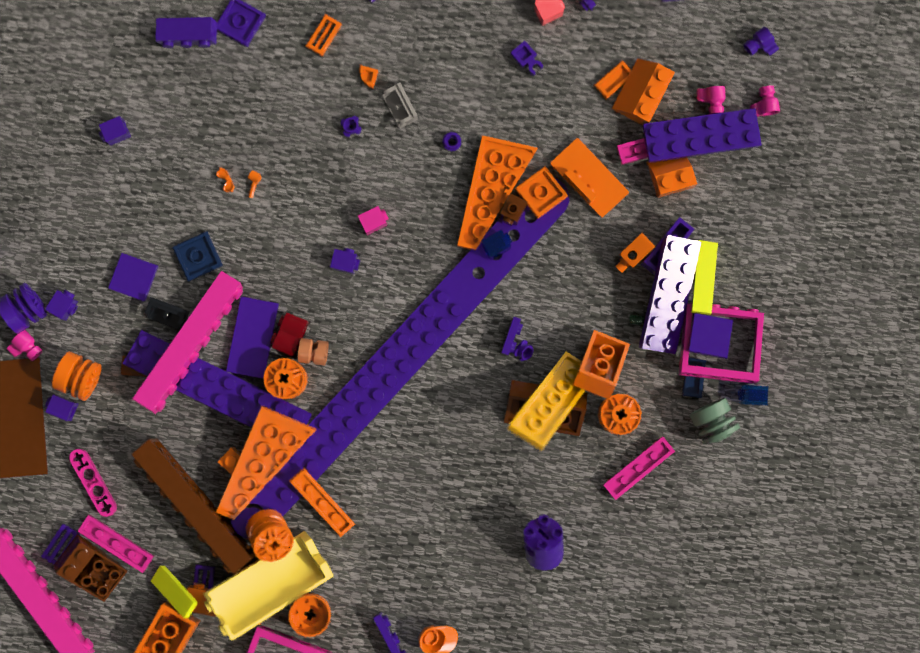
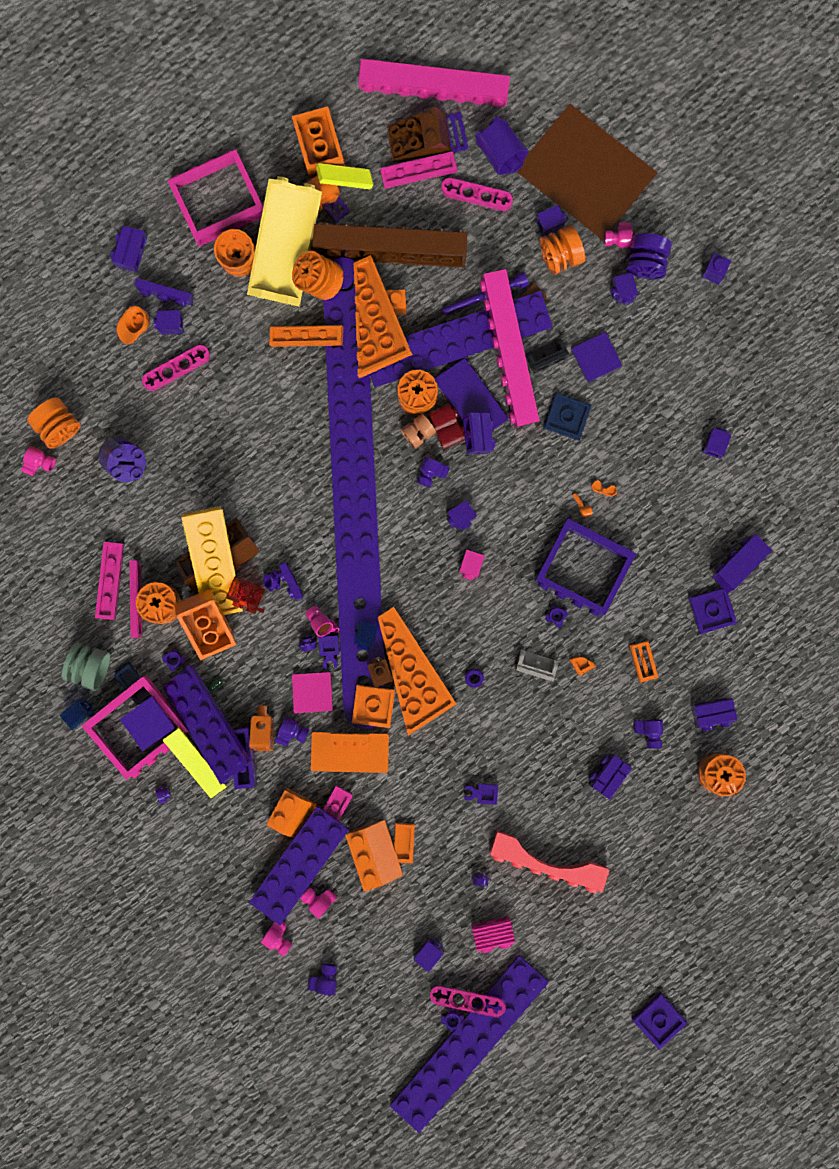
camera: 135 degrees right, 0 degrees up
(39, 495) = (502, 147): none -> dark purple cylinder
(129, 387) = (519, 280): none -> dark purple piece
(268, 151) = (599, 540): none -> dark purple window
(273, 305) = (478, 433): none -> dark purple brick
(332, 316) = (430, 469): none -> dark purple piece
(410, 614) = (169, 322): none -> dark purple brick
(437, 579) = (174, 364): none -> dark pink beam
(520, 285) = (320, 623): none -> dark pink piece
(531, 263) = (329, 647): none -> dark purple plate
(543, 281) = (308, 643): none -> dark purple plate
(553, 357) = (245, 594): none -> clear red bracket
(566, 622) = (53, 422): none -> orange wheel
(574, 245) = (312, 692): none -> dark pink tile
(605, 612) = (34, 459): none -> dark pink piece
(615, 234) = (289, 730): none -> dark purple piece
(631, 437) = (135, 586): none -> dark pink tile
(644, 362) = (173, 664): none -> dark purple plate
(749, 279) = (162, 794): none -> dark purple plate

